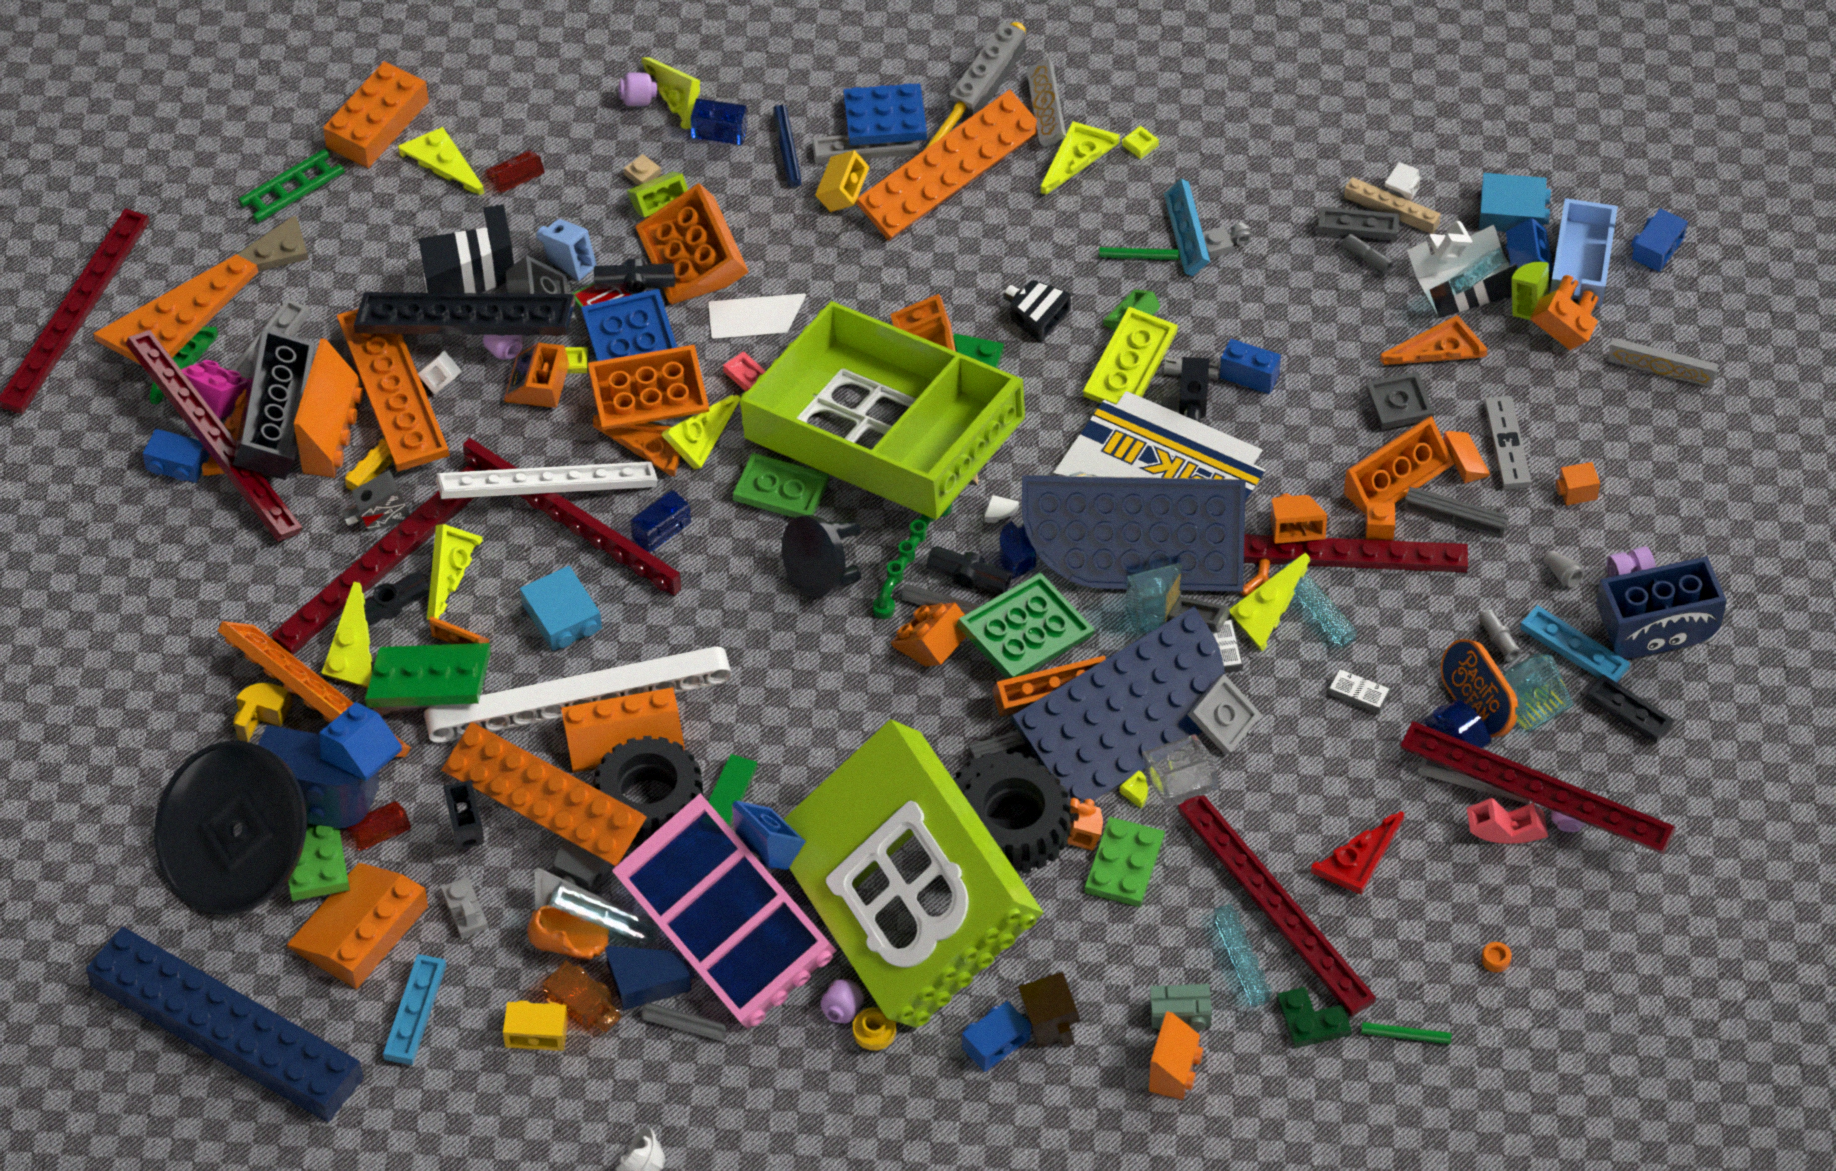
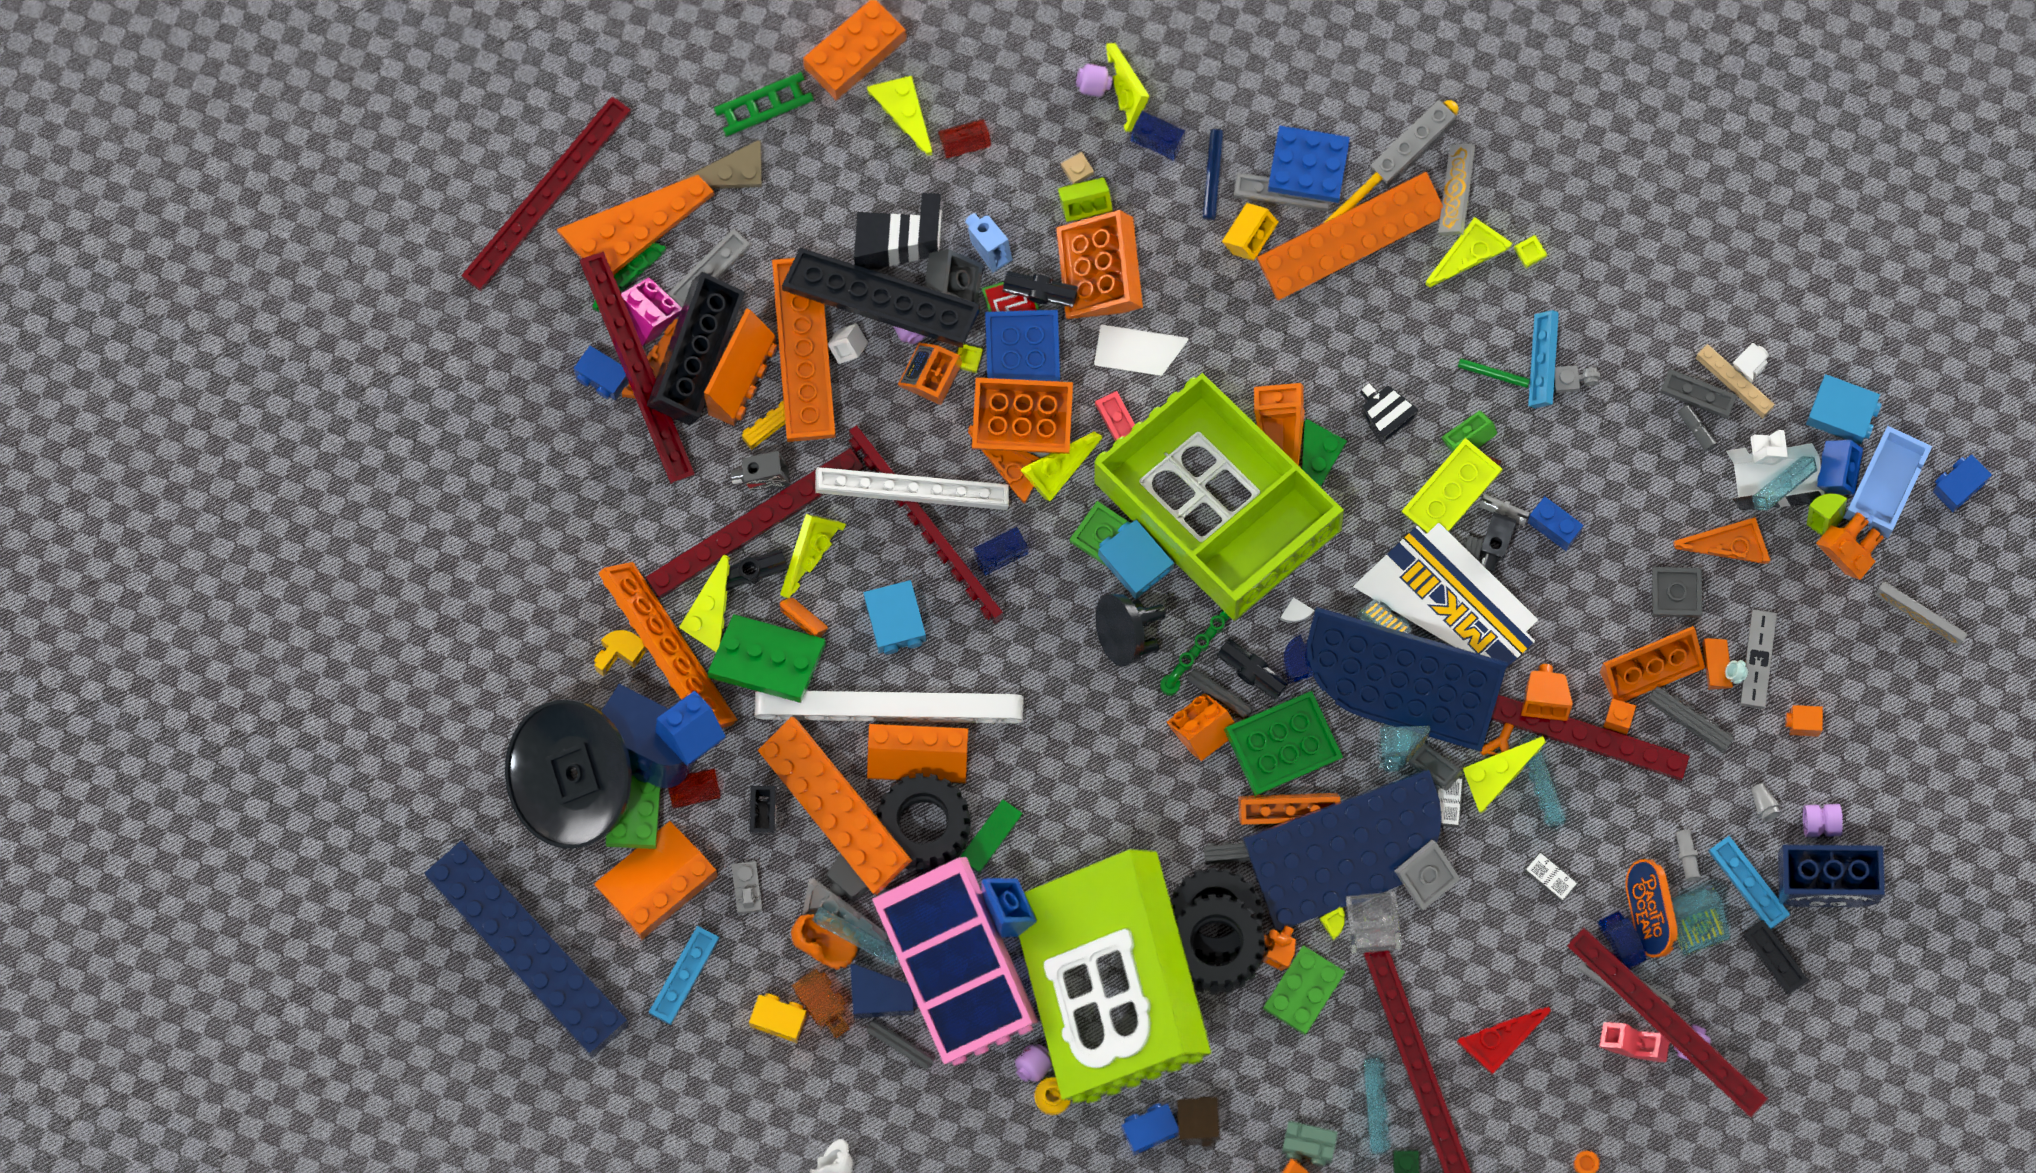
camera: 15 degrees right, 20 degrees up
(810, 488) = (1135, 558): none -> dark azure brick
(1489, 455) = (1736, 671): none -> light aqua plate

